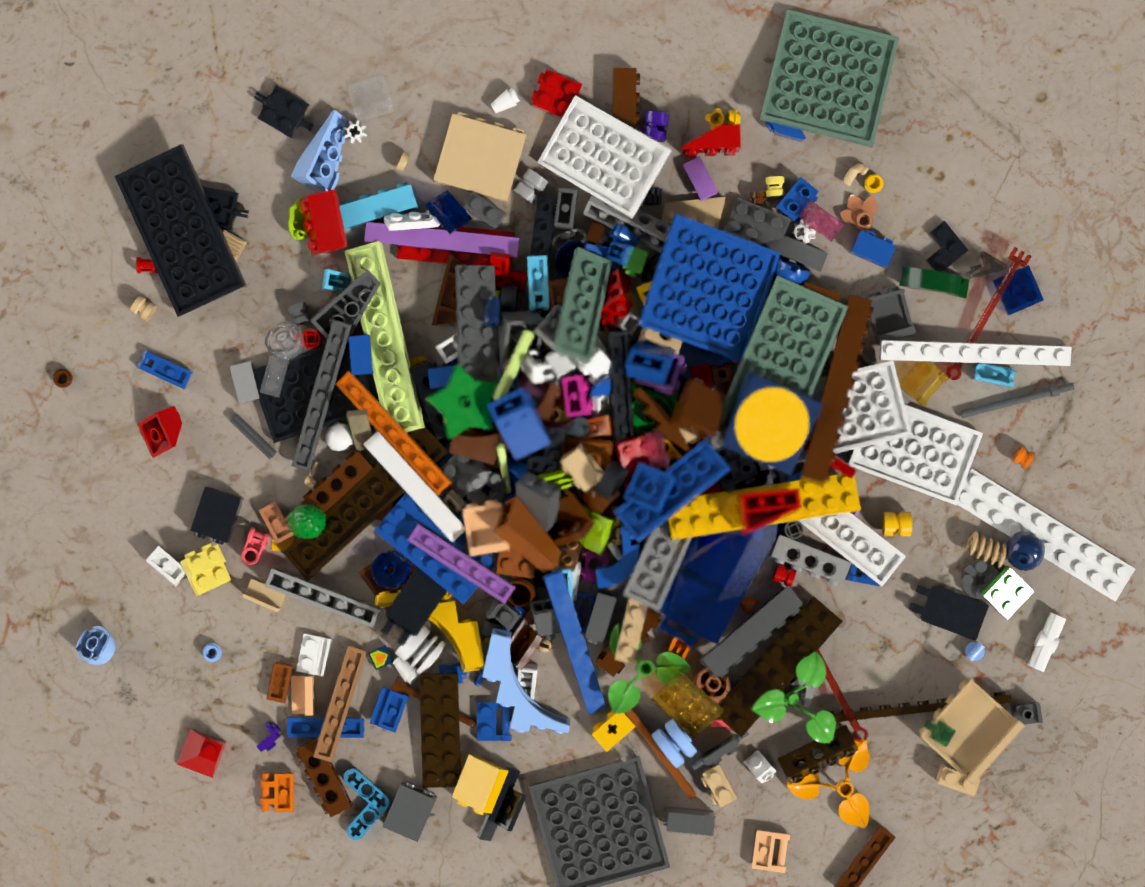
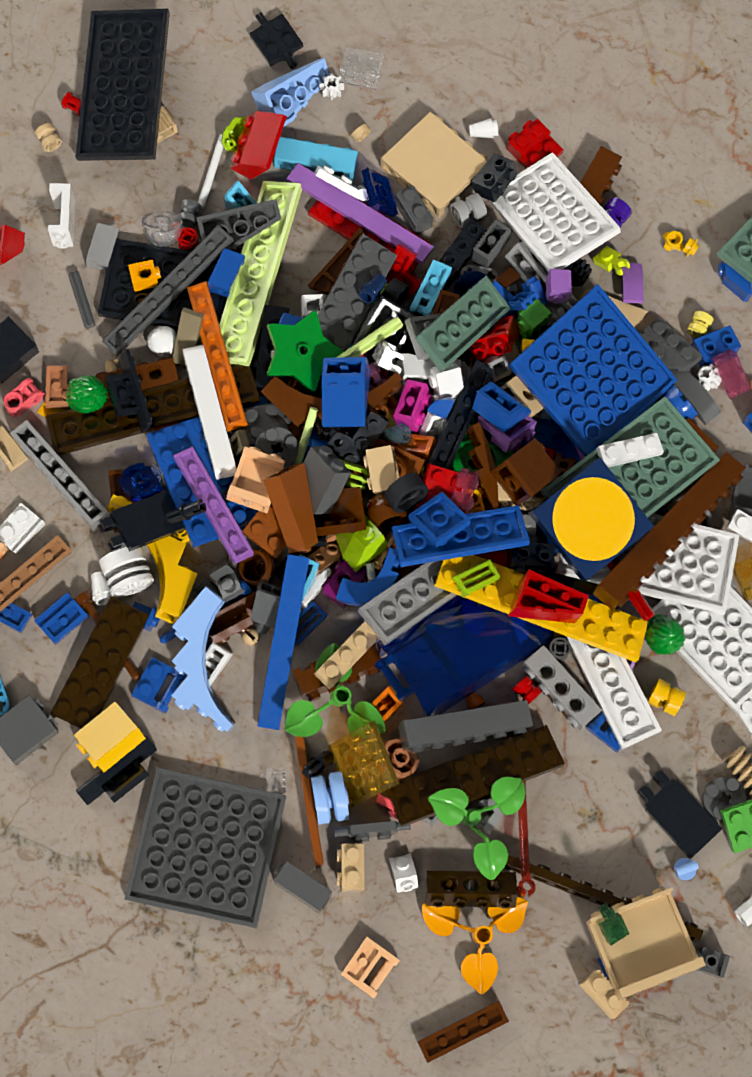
camera: 25 degrees right, 15 degrees down
(165, 370) = (35, 200): blue plate -> none
(193, 358) = (63, 198): none -> white panel
(225, 207) = (176, 90): black plate -> none
(274, 376) = (133, 252): clear plate -> none
(287, 396) = (140, 268): none -> light orange brick
(296, 266) = (211, 172): none -> white bar
(339, 504) = (127, 392): none -> black bracket
(380, 657) = (82, 565): tile -> none
(444, 582) = (186, 511): none -> black axle
(538, 146) = (494, 177): none -> black brick
(600, 617) = (321, 633): dark grey brick -> none
(609, 739) = (285, 758): yellow brick -> none
(643, 225) = (558, 285): none -> medium lavender brick
(651, 720) = (318, 763): none -> black axle
(673, 167) = (611, 259): none -> neon yellow plate
(693, 532) = (462, 585): none -> lime tile
(721, 139) = (662, 254): red slope -> none
(757, 197) = (679, 326): reddish brown plate -> none
(772, 342) = (630, 450): none -> white plate
(871, 475) = (664, 634): none -> green hair

